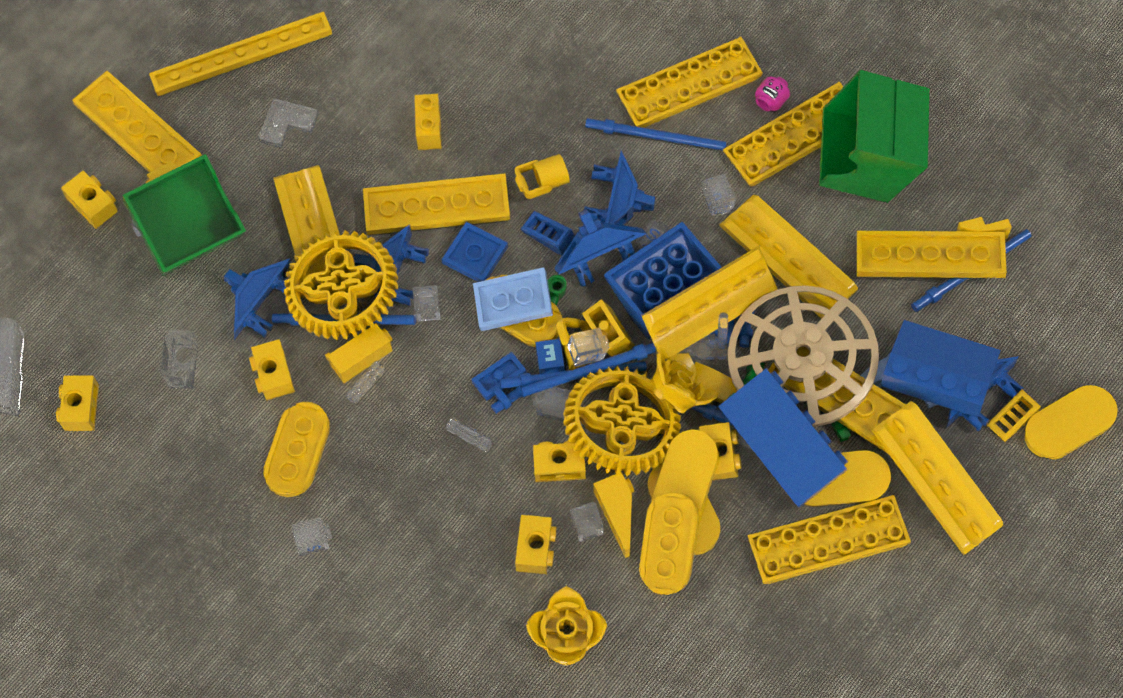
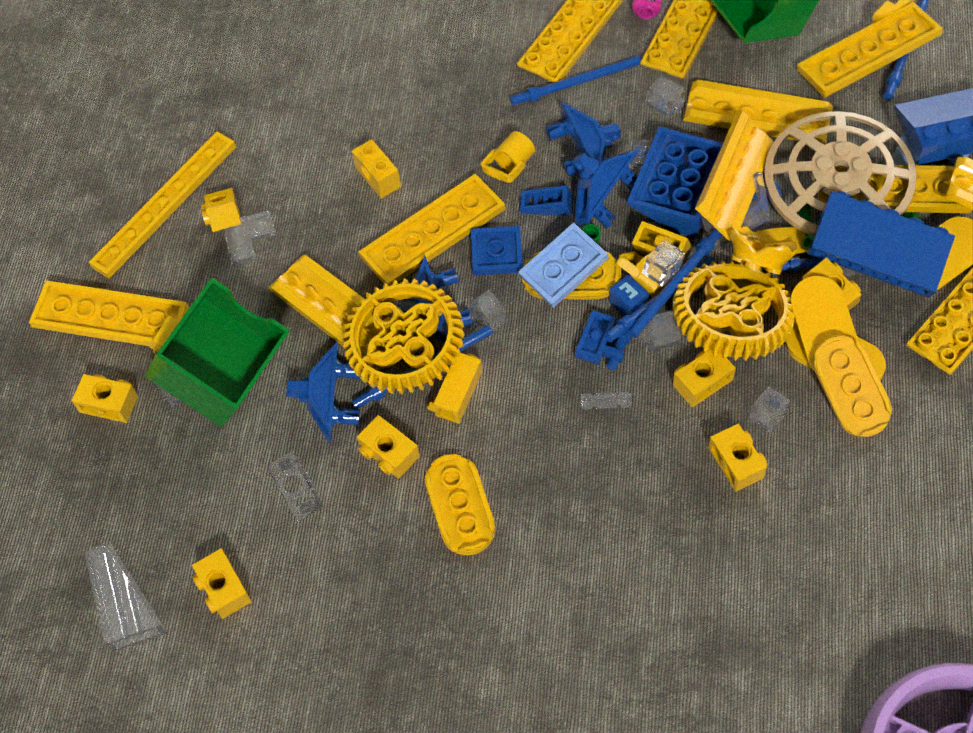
camera: 30 degrees left, 5 degrees down
(277, 88) = (221, 210): none -> yellow brick
(311, 536) = (533, 570): clear brick -> none
(365, 382) = (480, 410): clear axle -> none
(564, 609) = (841, 498): yellow brick -> none
(616, 503) = (783, 378): yellow slope -> none

